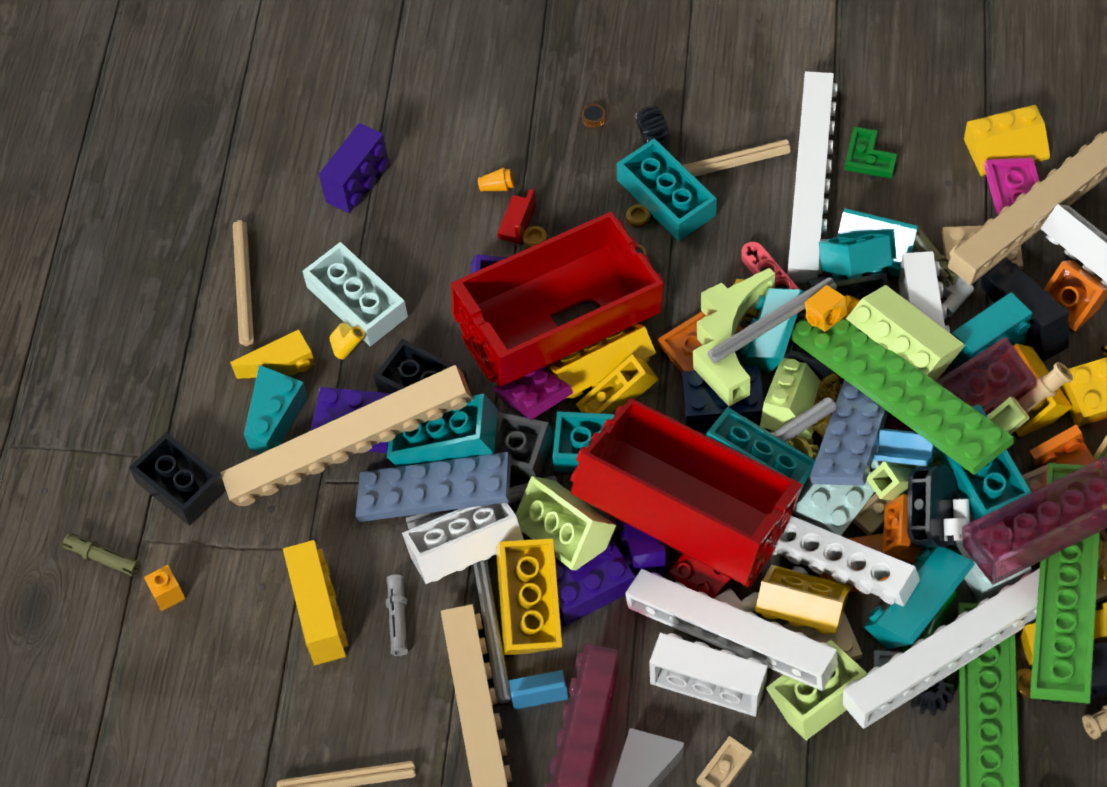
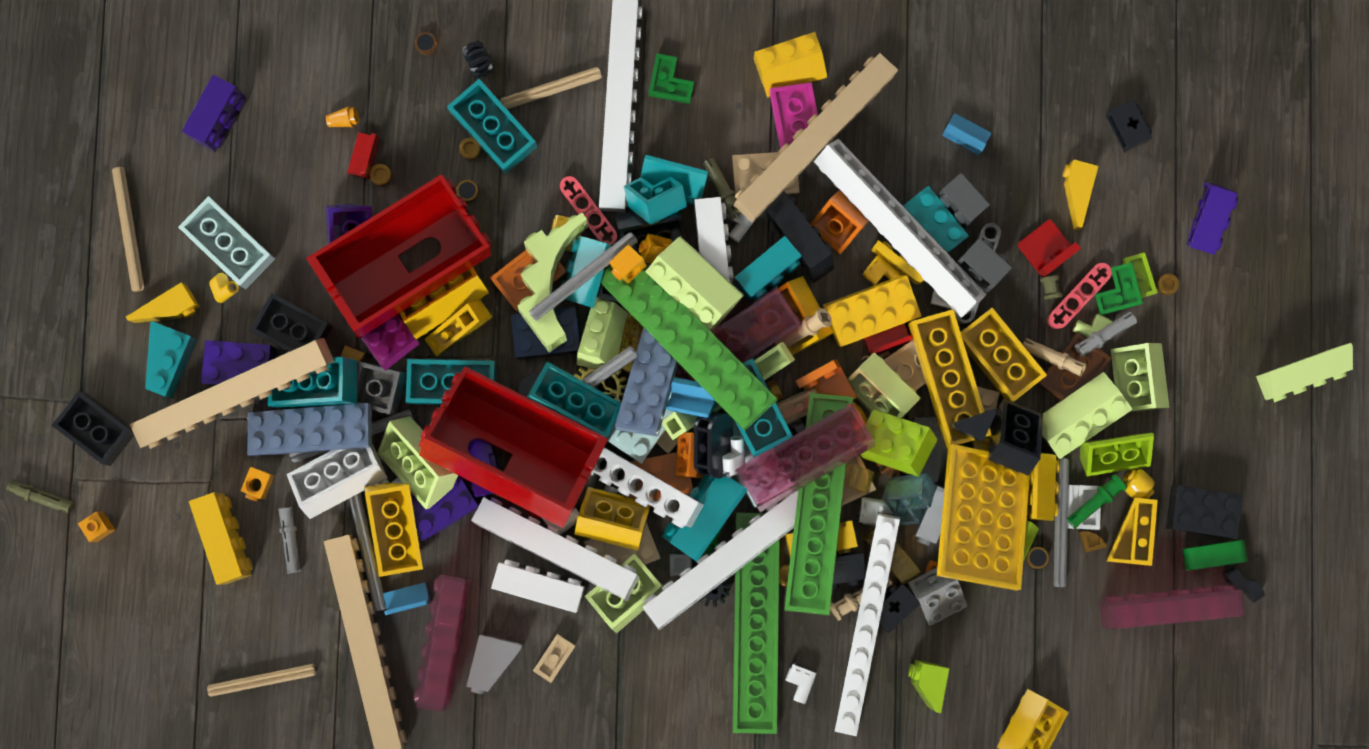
camera: 10 degrees left, 25 degrees up
(364, 538) = (266, 481): none -> light orange brick

